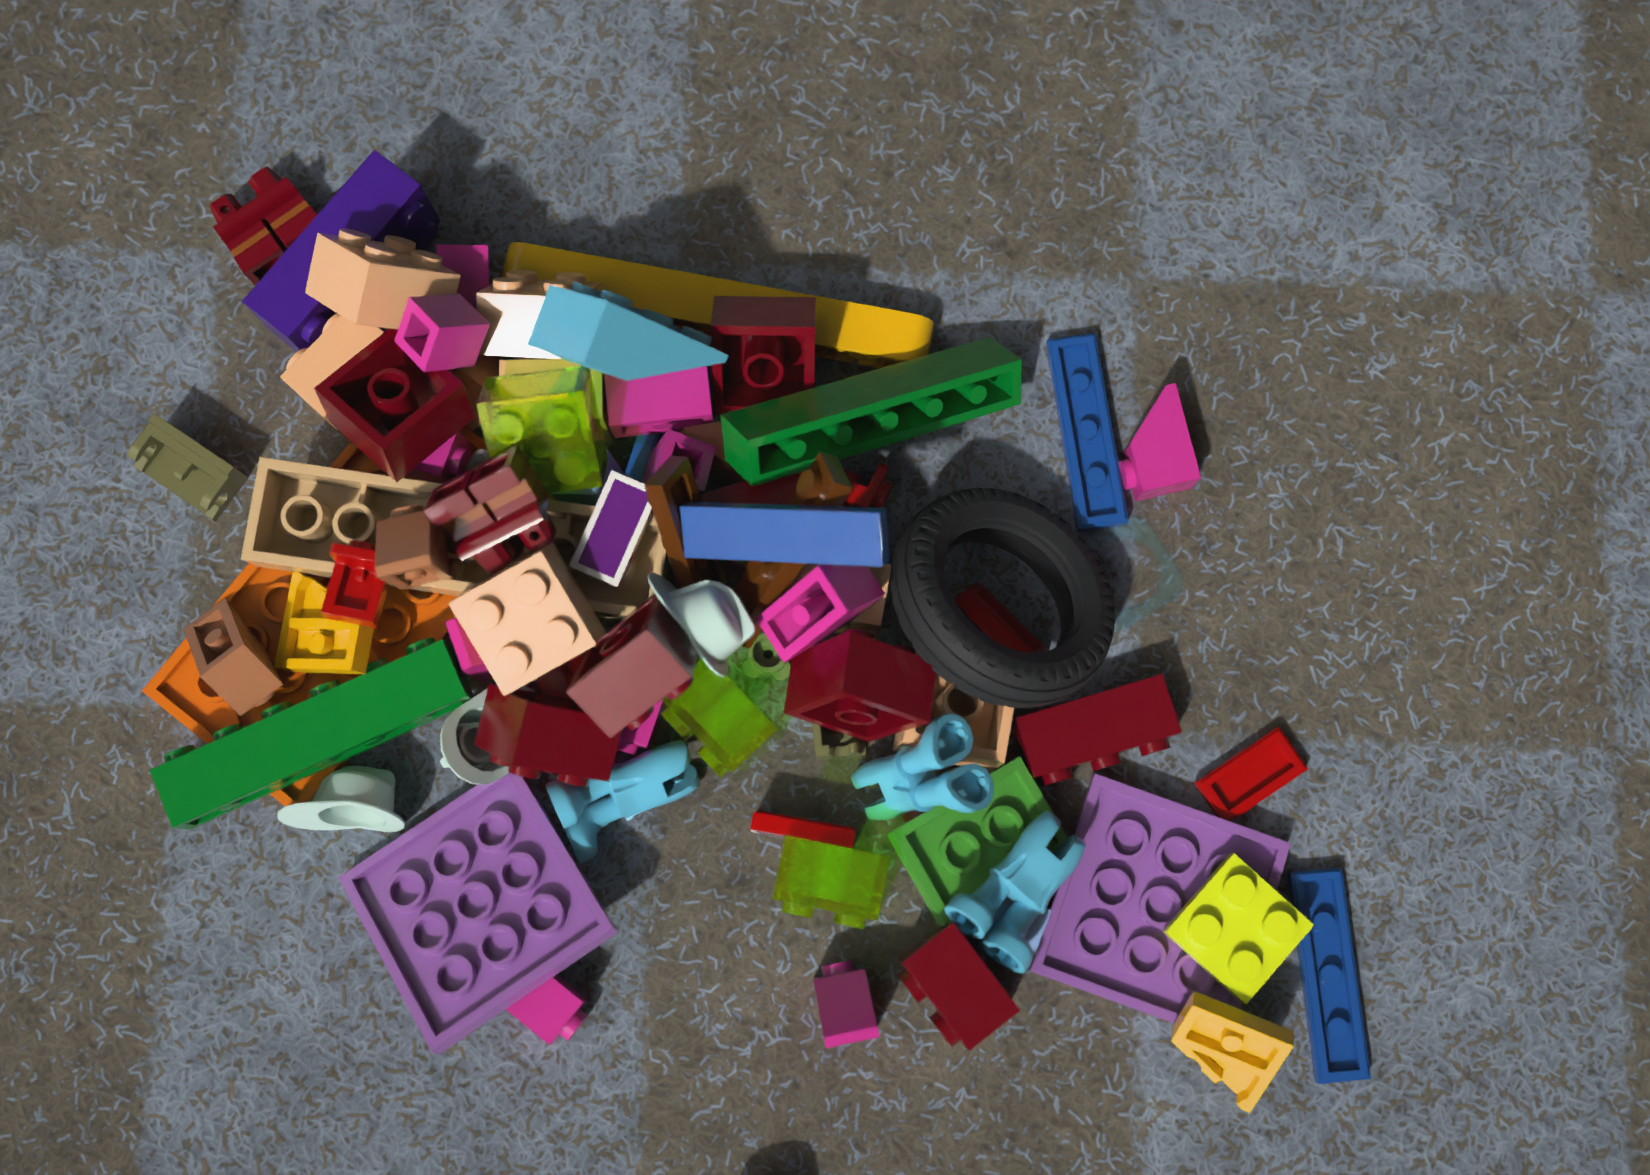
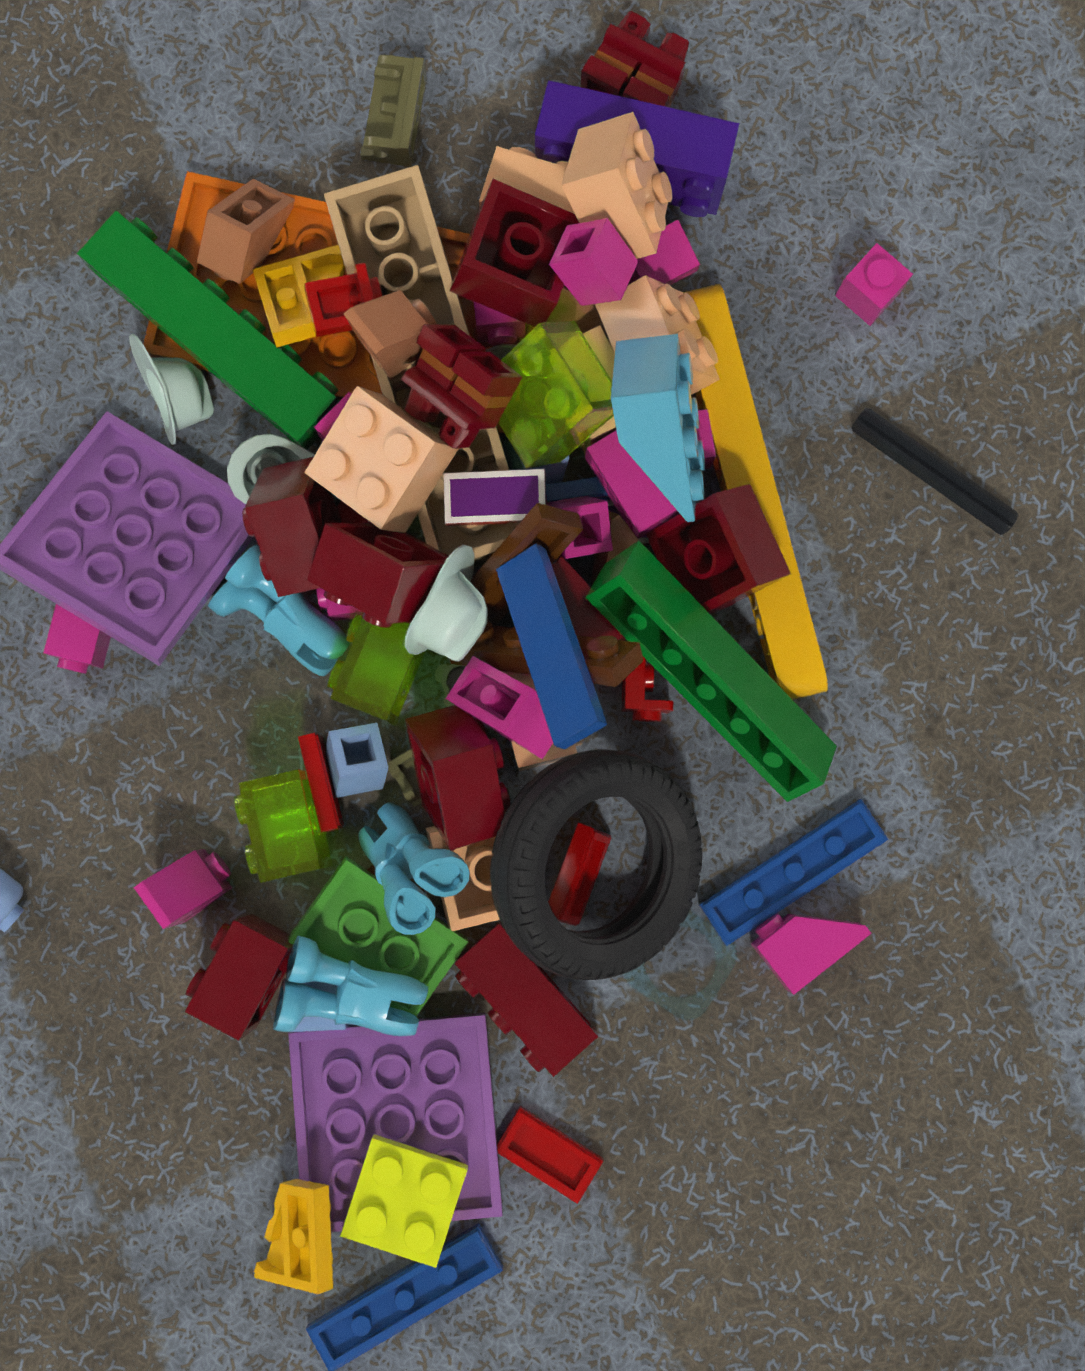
camera: 65 degrees right, 5 degrees up
(580, 109) = (873, 284): none -> dark pink brick
(776, 138) = (935, 471): none -> black axle
(798, 783) = (356, 759): none -> light blue brick

